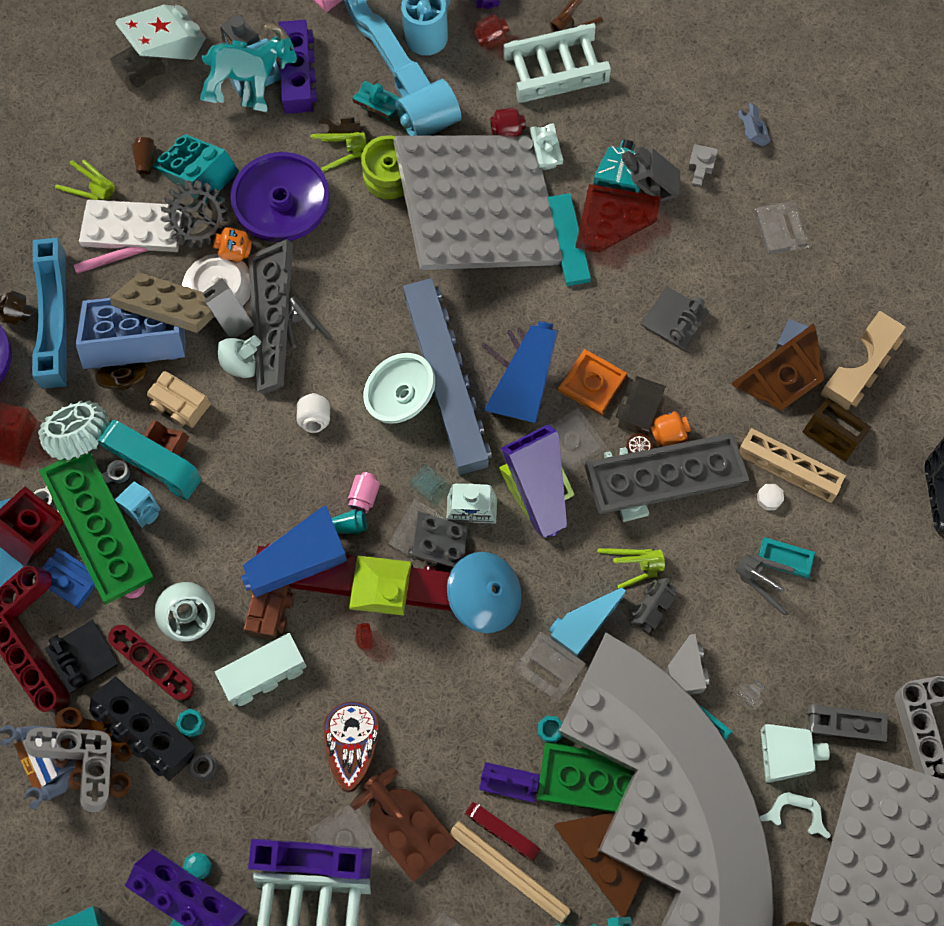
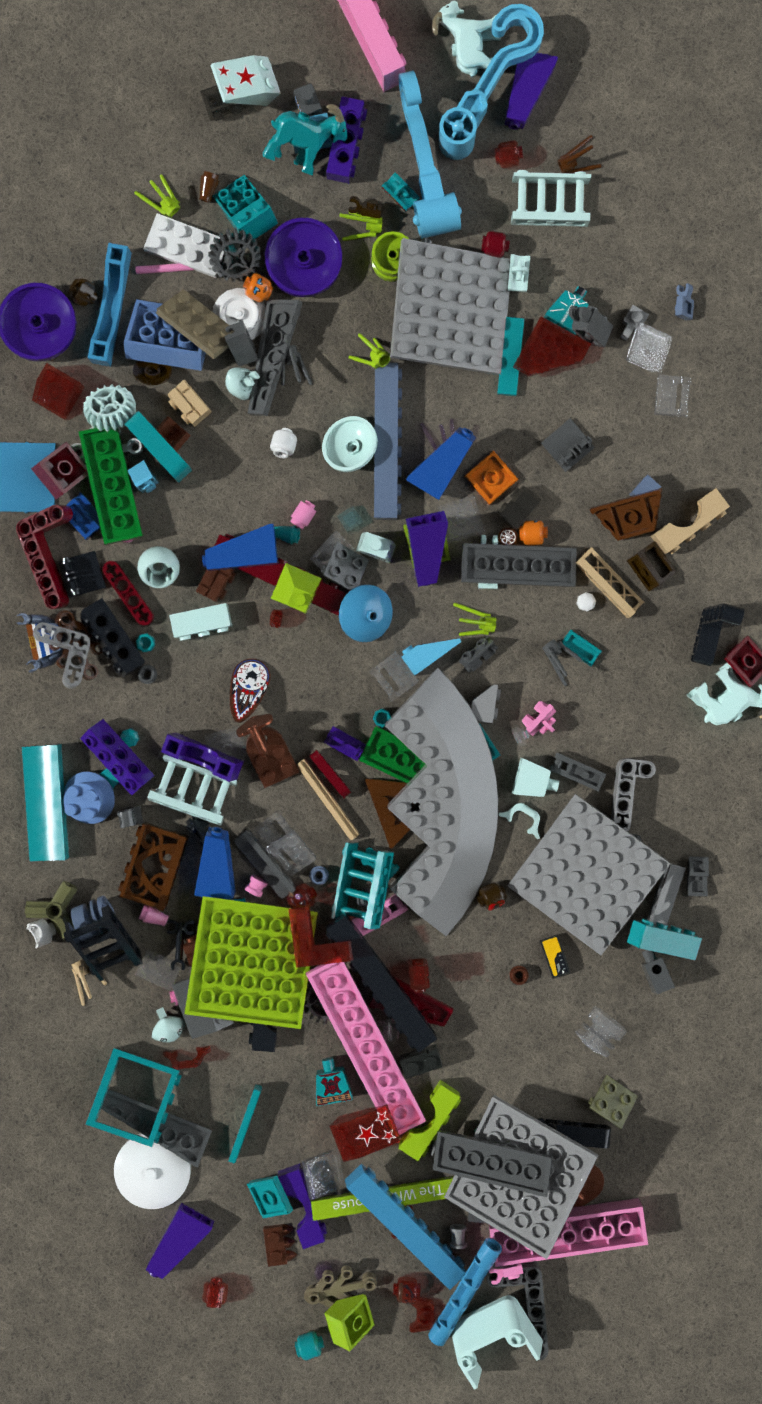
camera: 20 degrees right, 20 degrees up
(404, 275) = (379, 355): none -> lime plant
(732, 183) = (649, 348): none -> clear plate
(771, 669) = (535, 725): none -> bright pink hips

